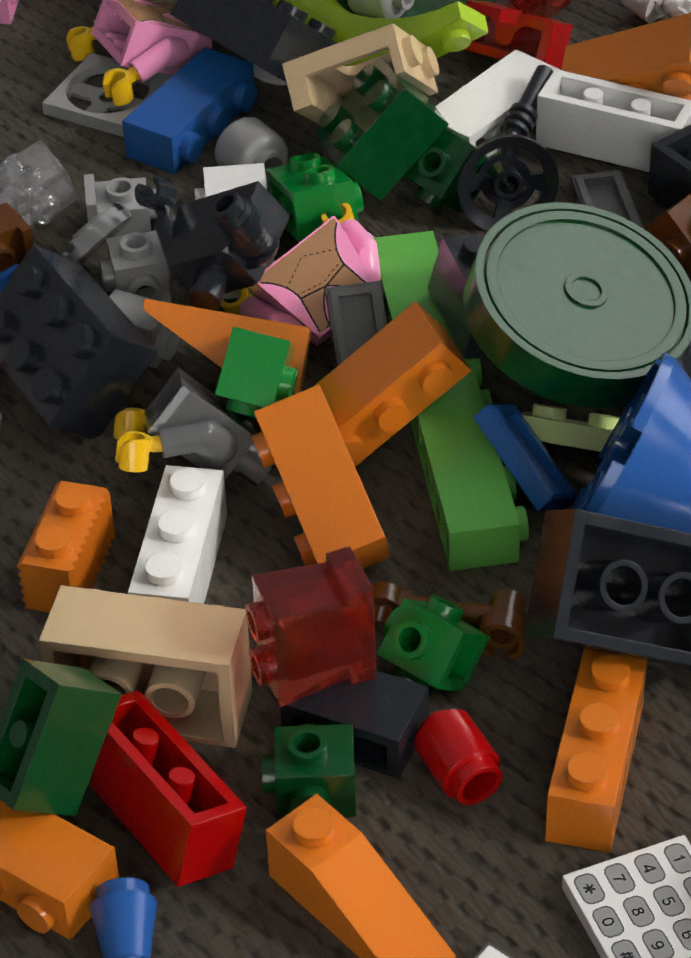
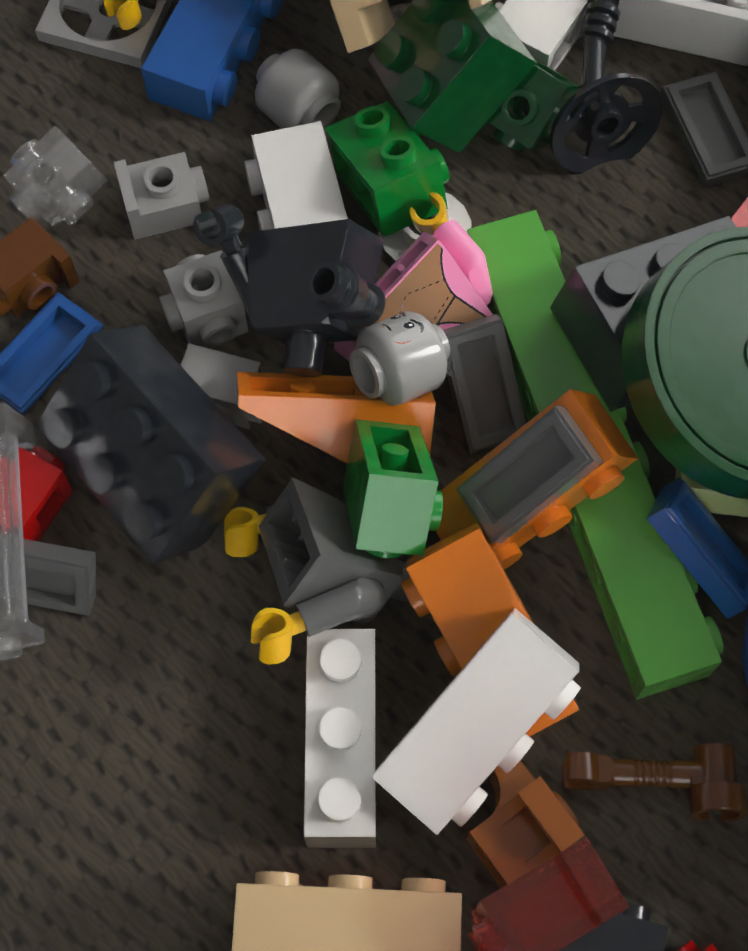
camera: 10 degrees left, 25 degrees up
(66, 543) = (210, 746): orange brick -> none
(93, 235) = (140, 270): dark grey tile -> none
(286, 291) = (400, 358): none -> light grey head
(293, 513) = (479, 723): none -> white brick
(372, 363) = (529, 474): none -> dark grey tile
(432, 643) = (653, 844): green brick -> none

